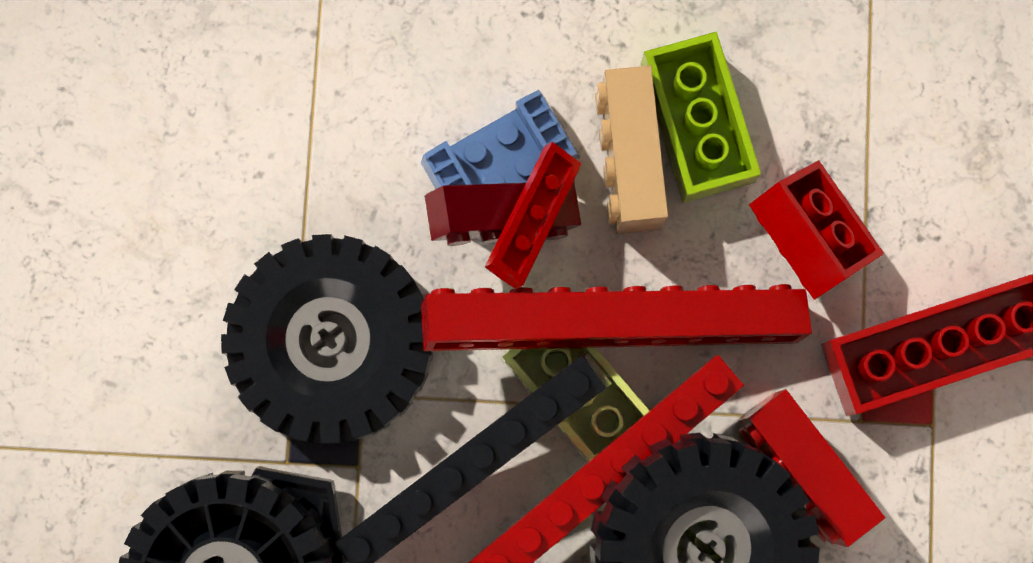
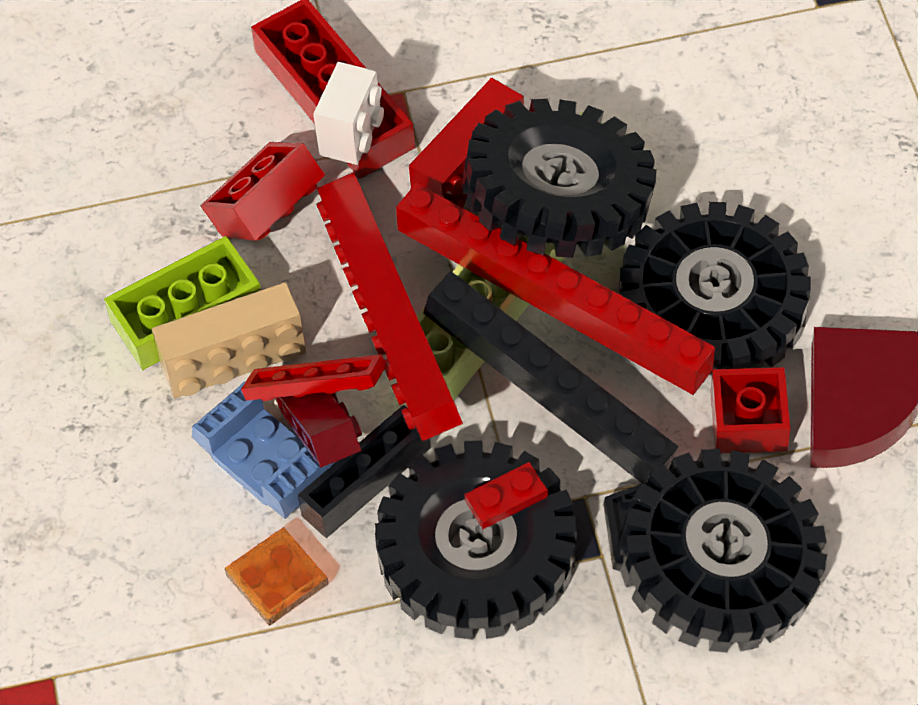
camera: 105 degrees left, 25 degrees down
(347, 377) = (506, 495): none -> red plate
(357, 138) = (276, 576): none -> clear orange plate
(445, 263) = (361, 476): none -> black brick
(870, 338) = (348, 113): none -> white brick

